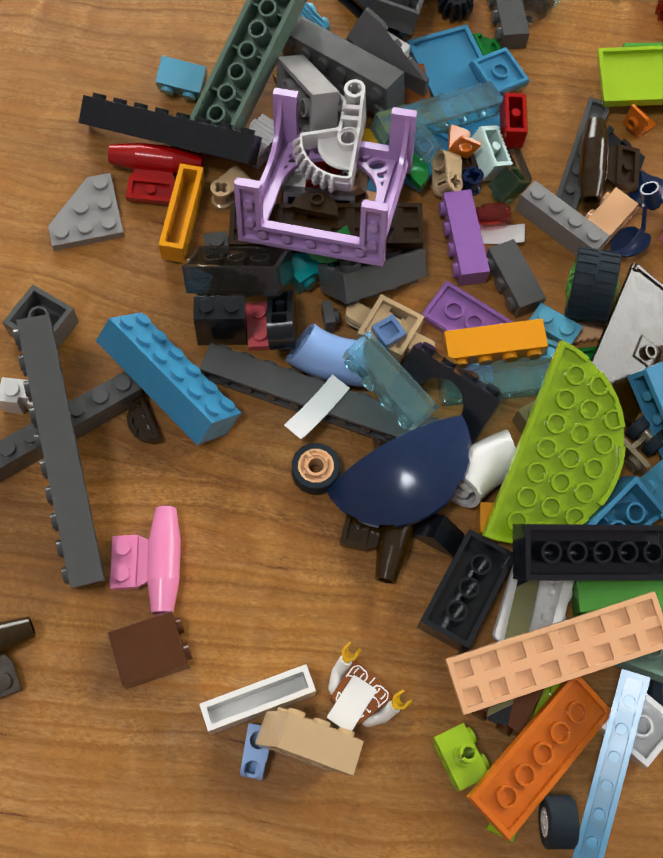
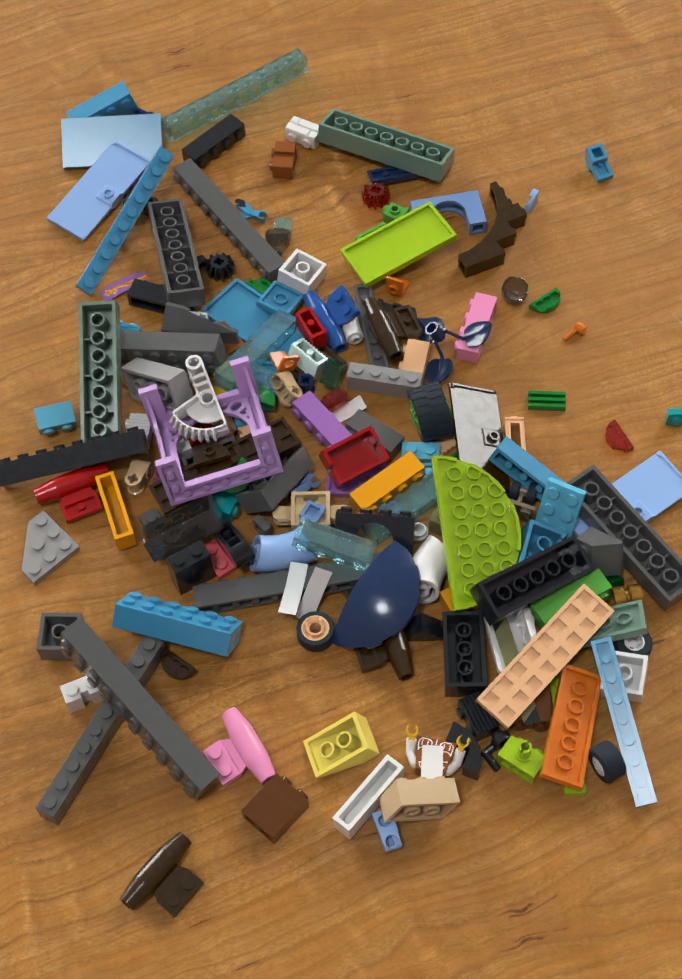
camera: 20 degrees left, 10 degrees down
(265, 619) = (341, 745): none -> light yellow slope
(338, 423) = (313, 591): none -> white sticker
(401, 727) = (473, 760): none -> black brick
(404, 293) = (305, 484): none -> medium blue plate
(436, 682) = (478, 720): none -> black brick
(448, 717) = (498, 740): none -> black plate
(474, 290) = (353, 456): none -> red piece
(501, 418) = (421, 532): none -> white plate
(541, 53) = (302, 272): none -> white brick
(553, 116) = (337, 311): none -> blue plate
(560, 138) = (353, 332): none -> white brick

